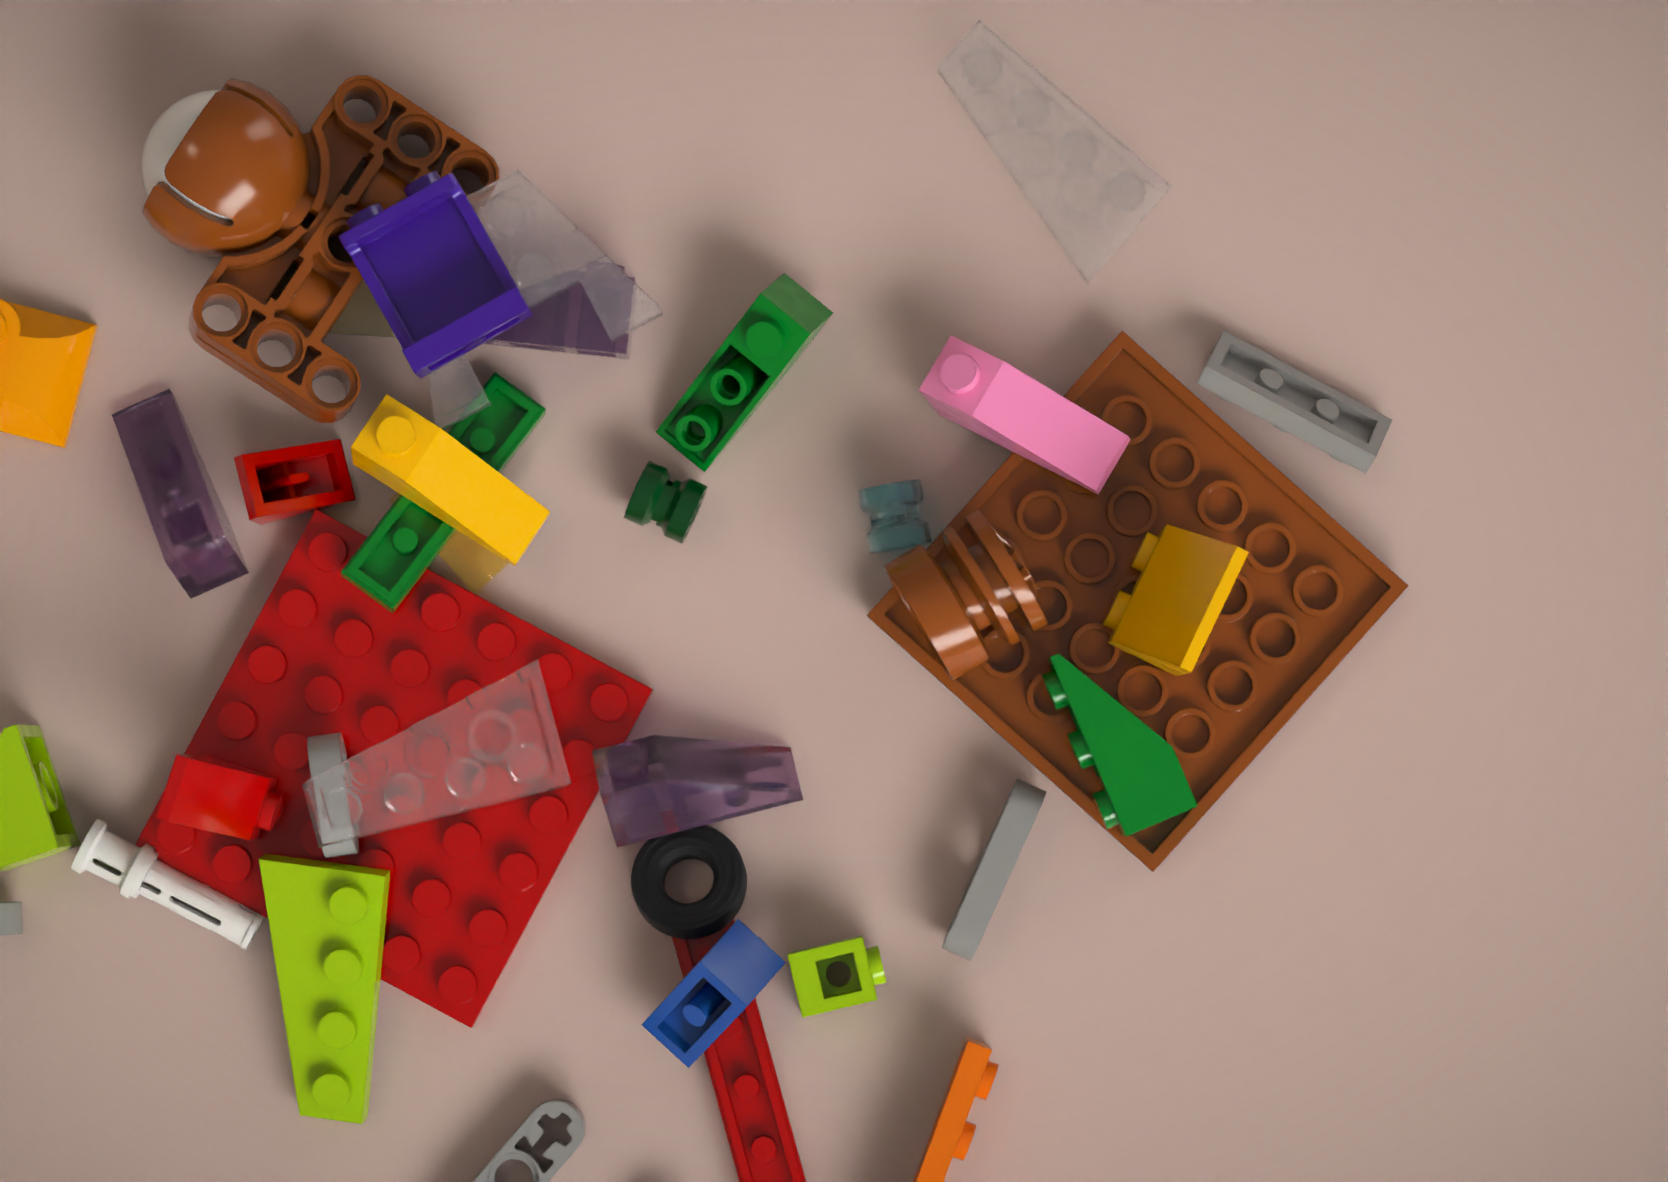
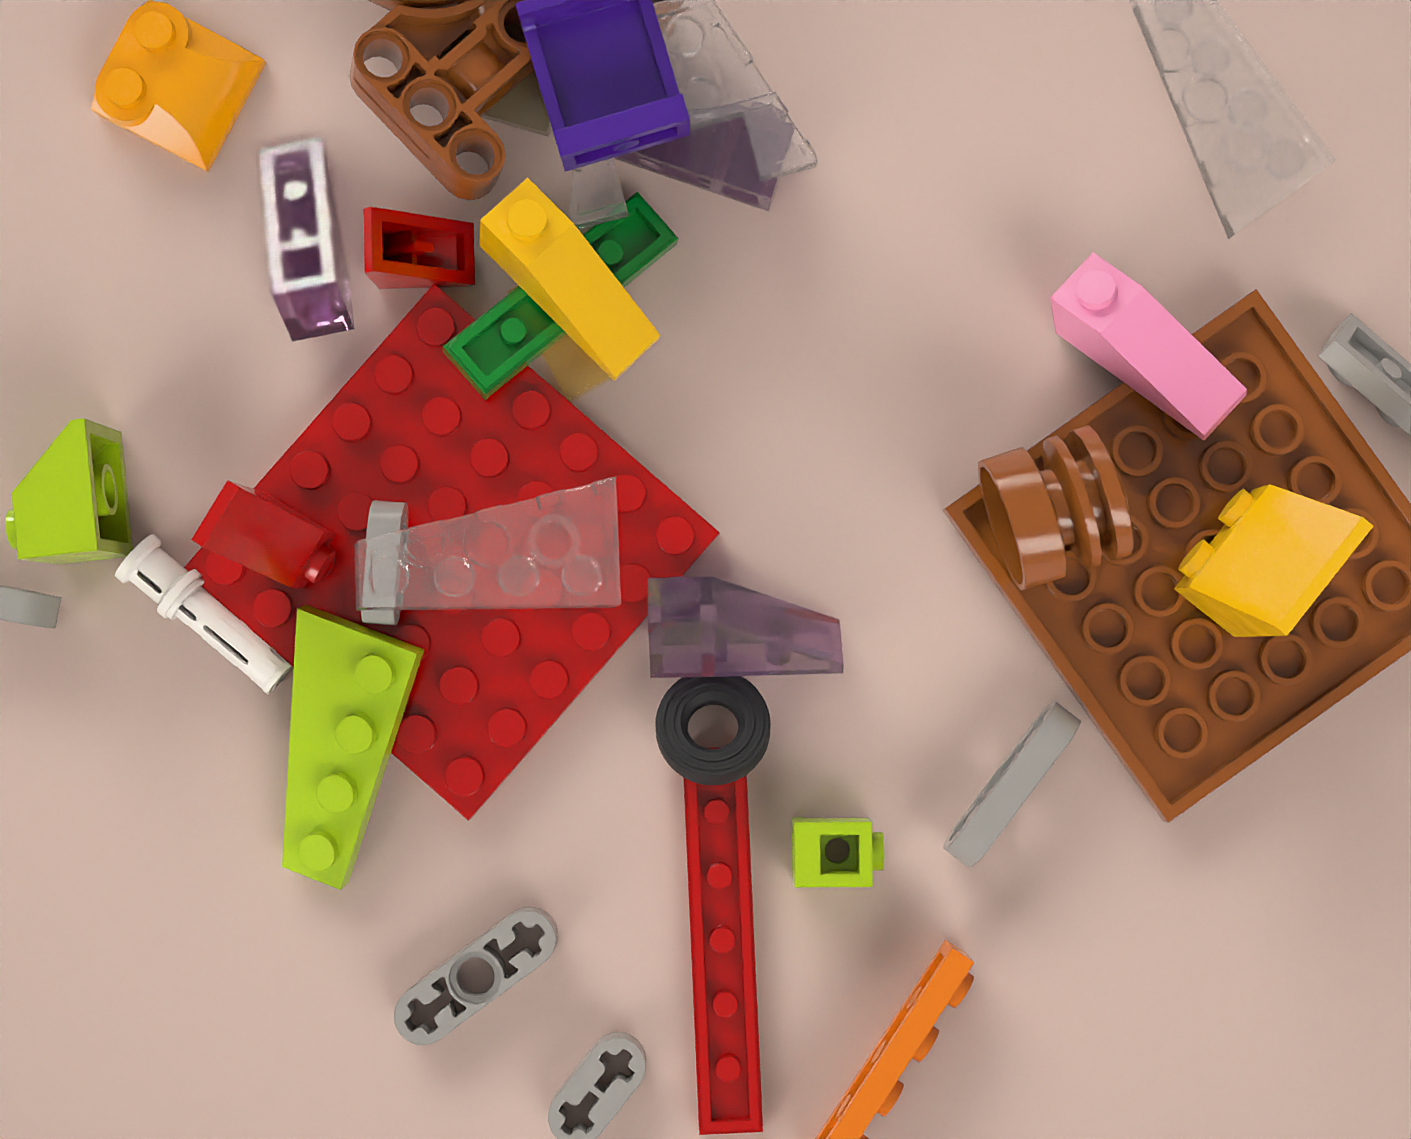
camera: 10 degrees right, 0 degrees up
(666, 502) = (777, 356): dark green wheel -> none
(713, 993) = (713, 843): blue slope -> none
(744, 371) = (878, 245): green slope -> none
(894, 501) = (993, 404): clear light blue wheel -> none
(1132, 762) = (1176, 711): green slope -> none

